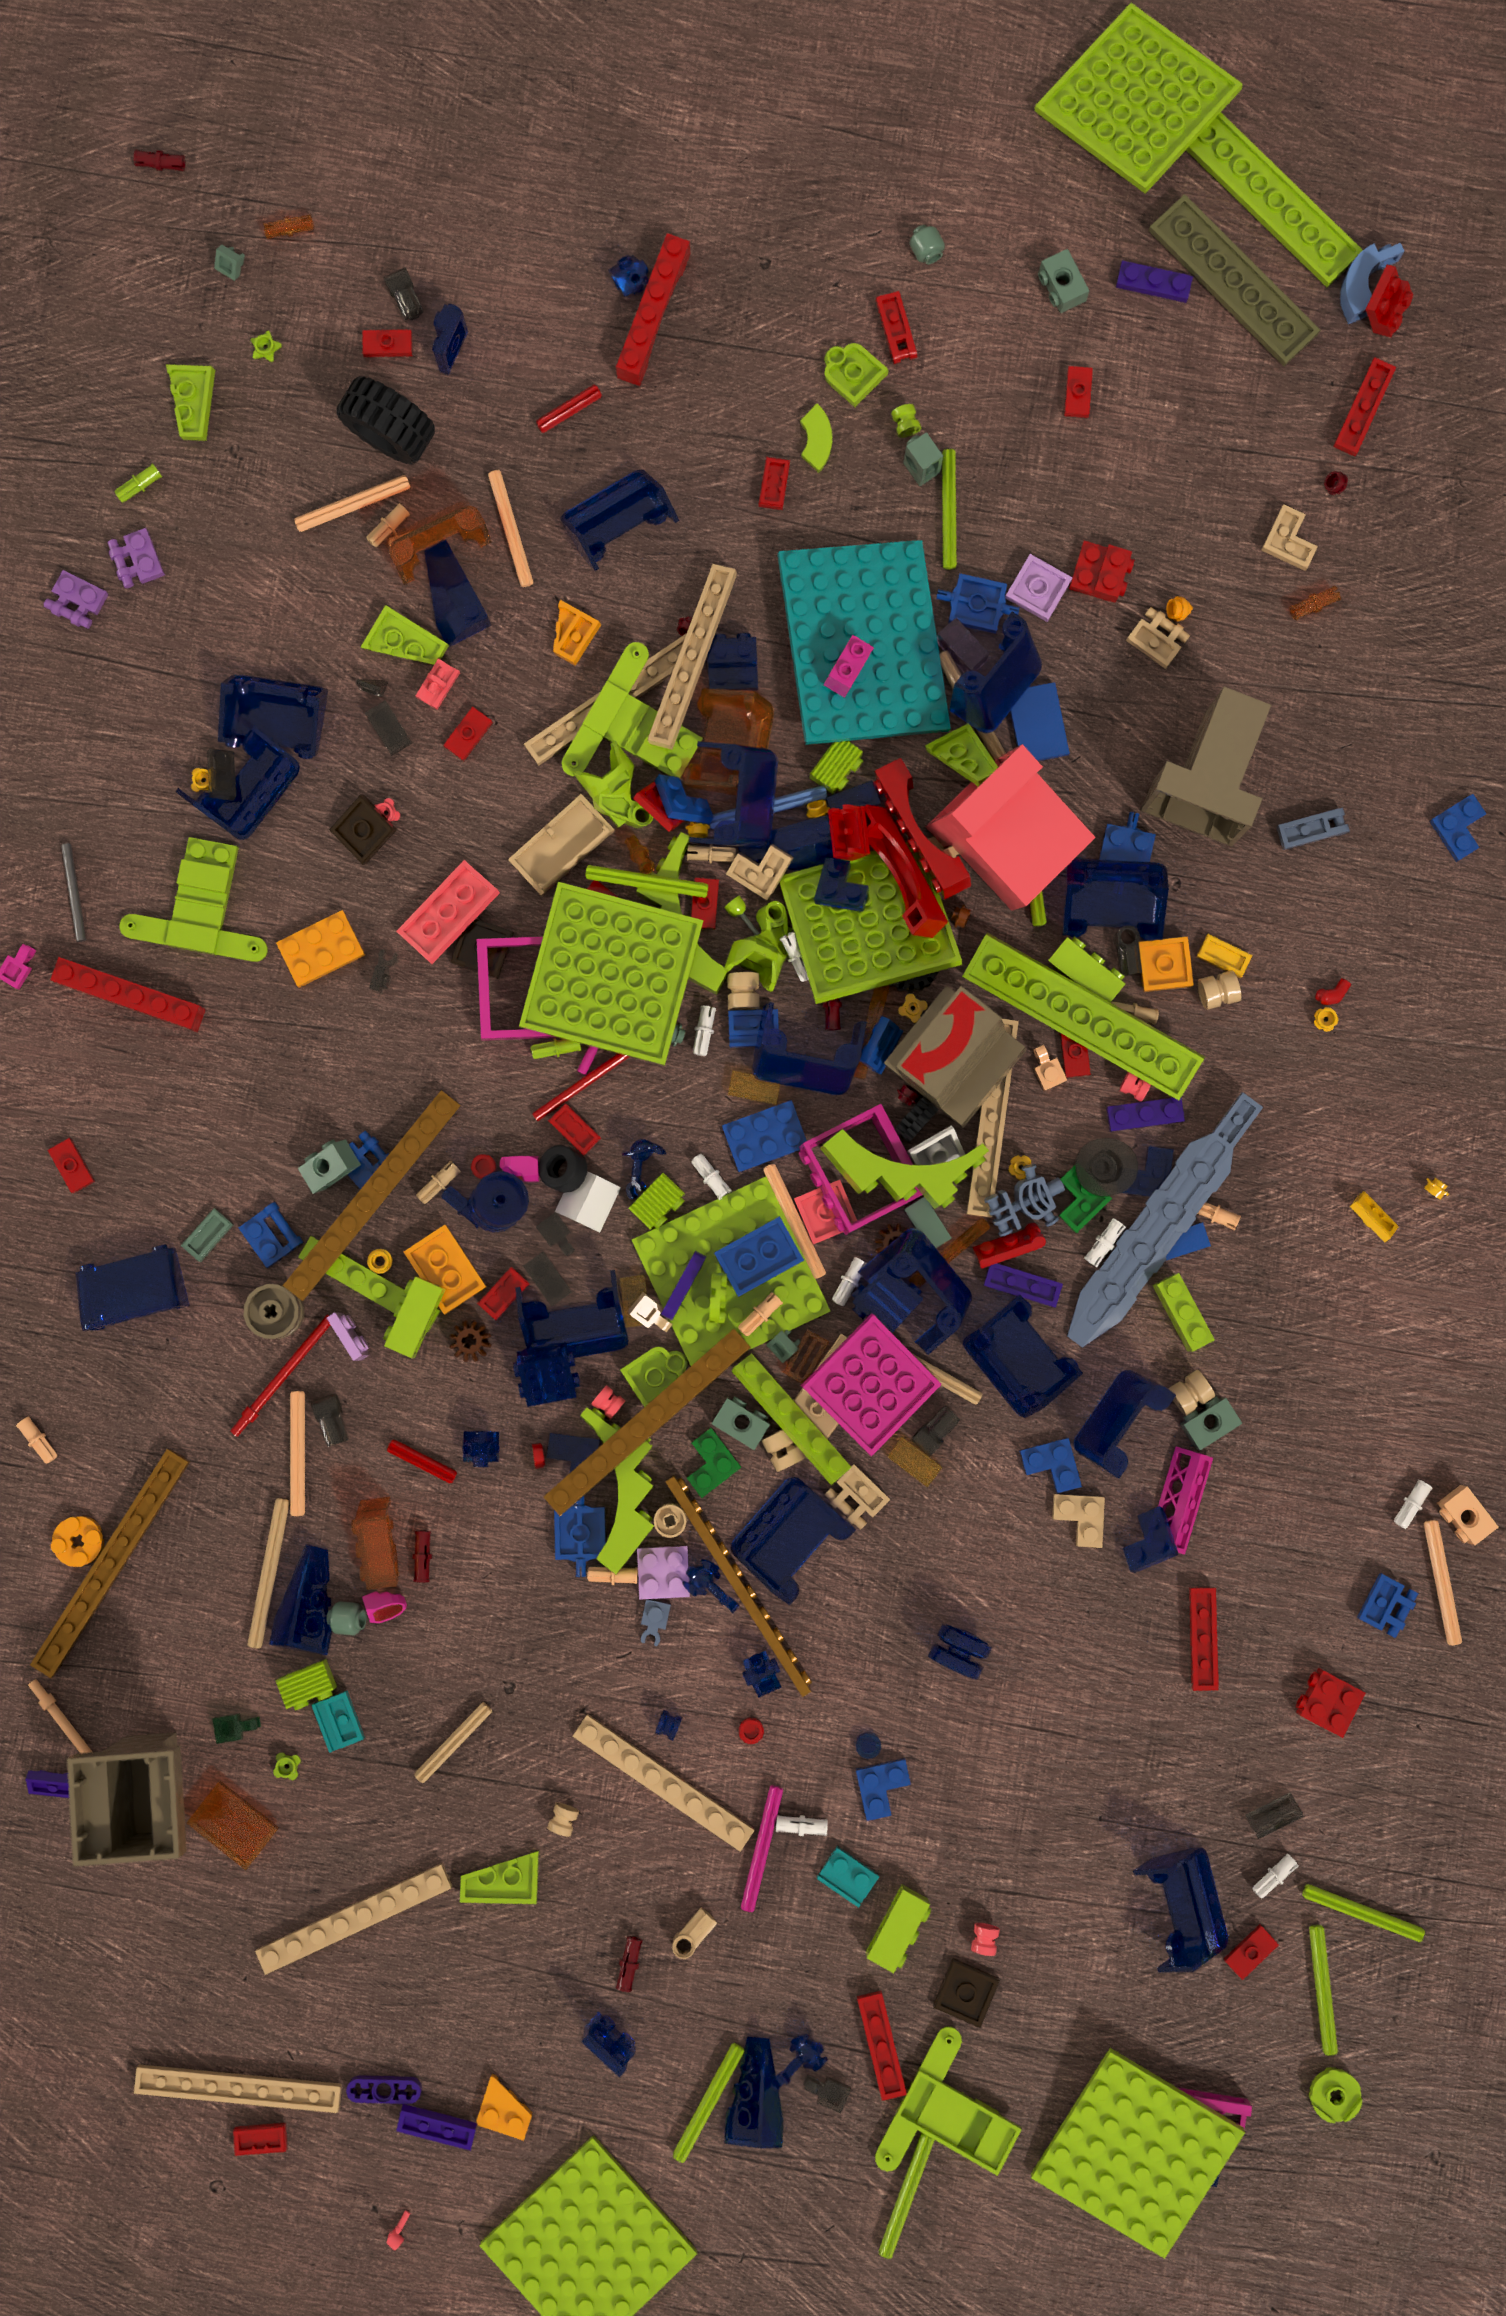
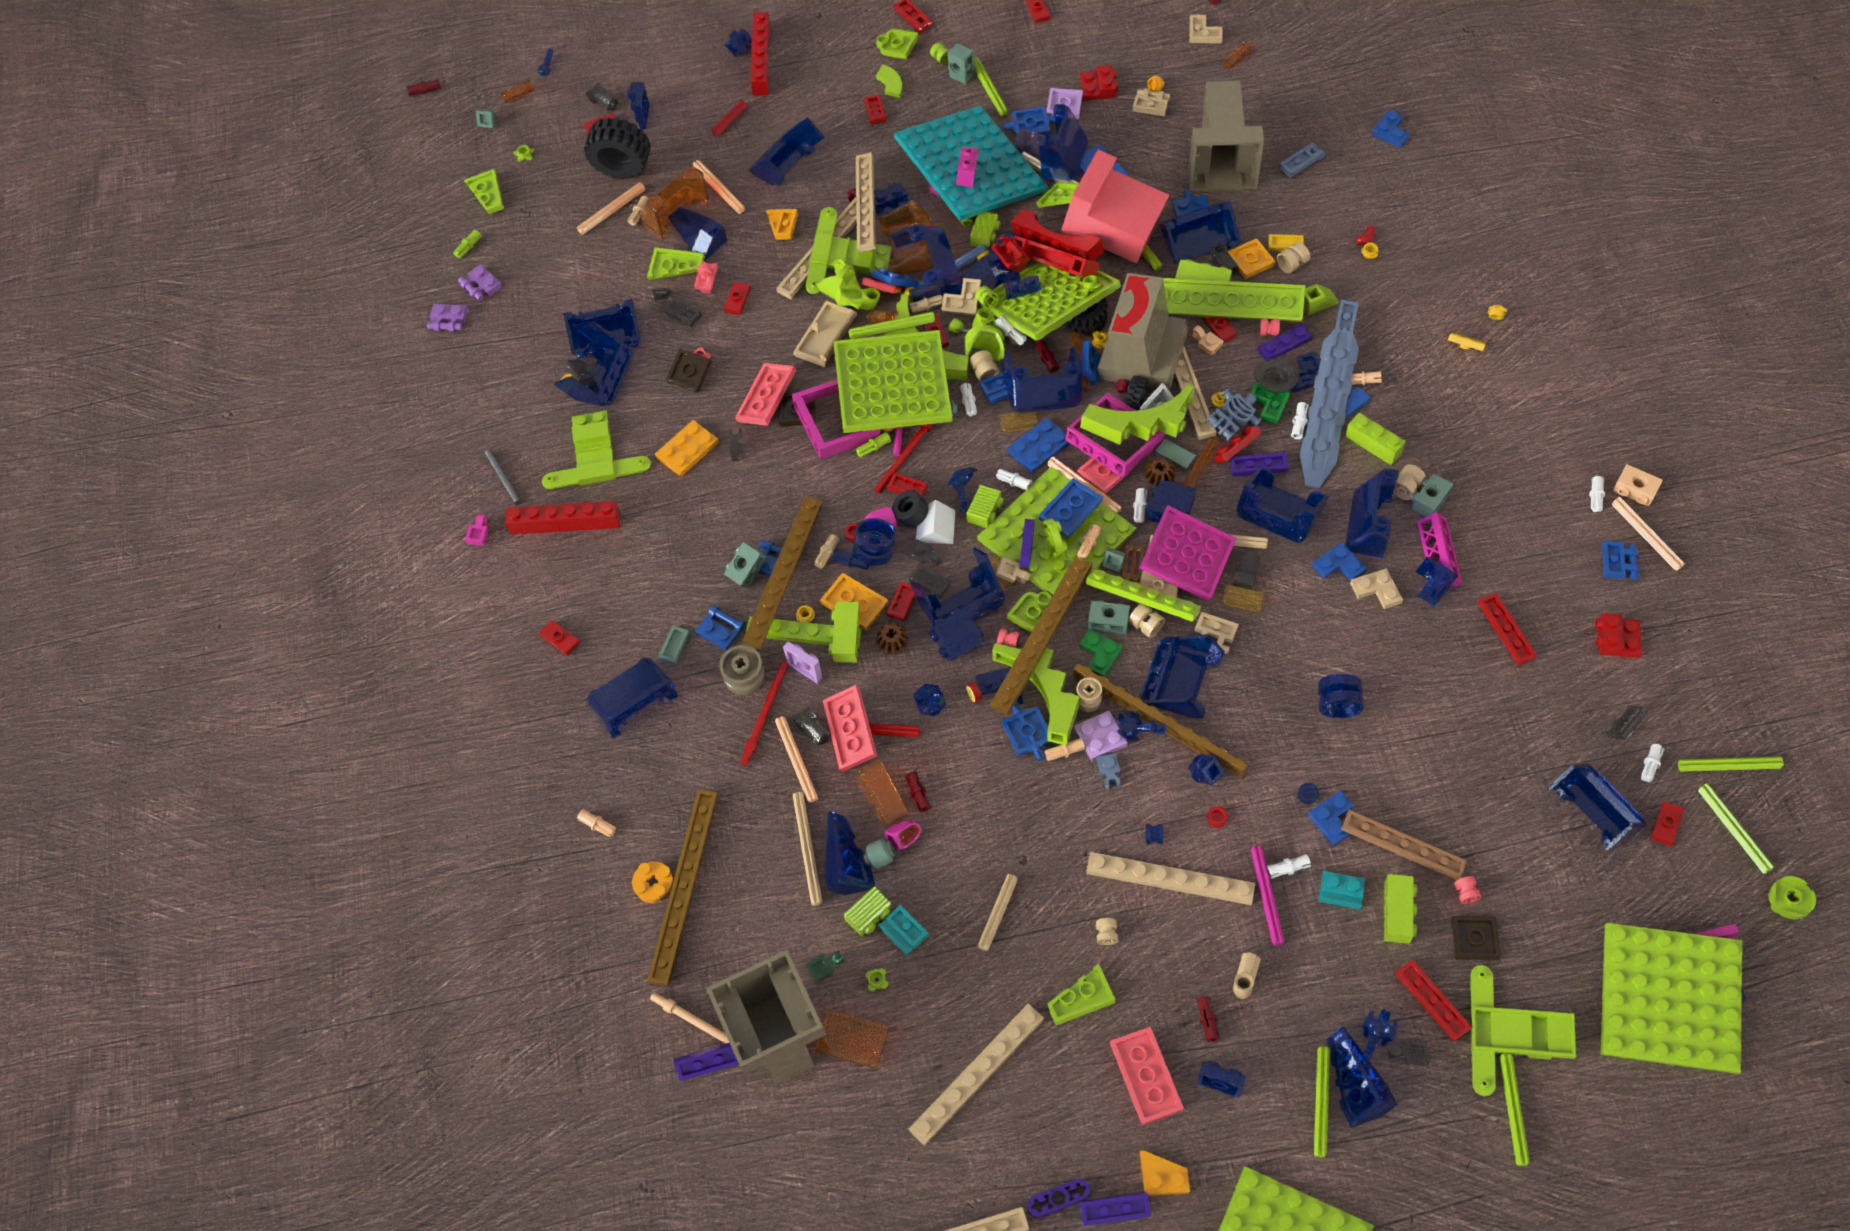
camera: 15 degrees left, 25 degrees down
(340, 198) = (544, 70): none -> clear blue bar
(372, 1444) = (849, 728): none -> coral plate
(533, 1999) = (1146, 1076): none -> coral plate
(787, 887) = (987, 297): none -> lime wheel
(916, 1252) = (1197, 474): clear blue windscreen -> none
(922, 941) = (1090, 283): none -> lime plate
(941, 1856) = (1404, 845): none -> medium nougat tile
(1220, 1071) = (1318, 298): none -> lime slope

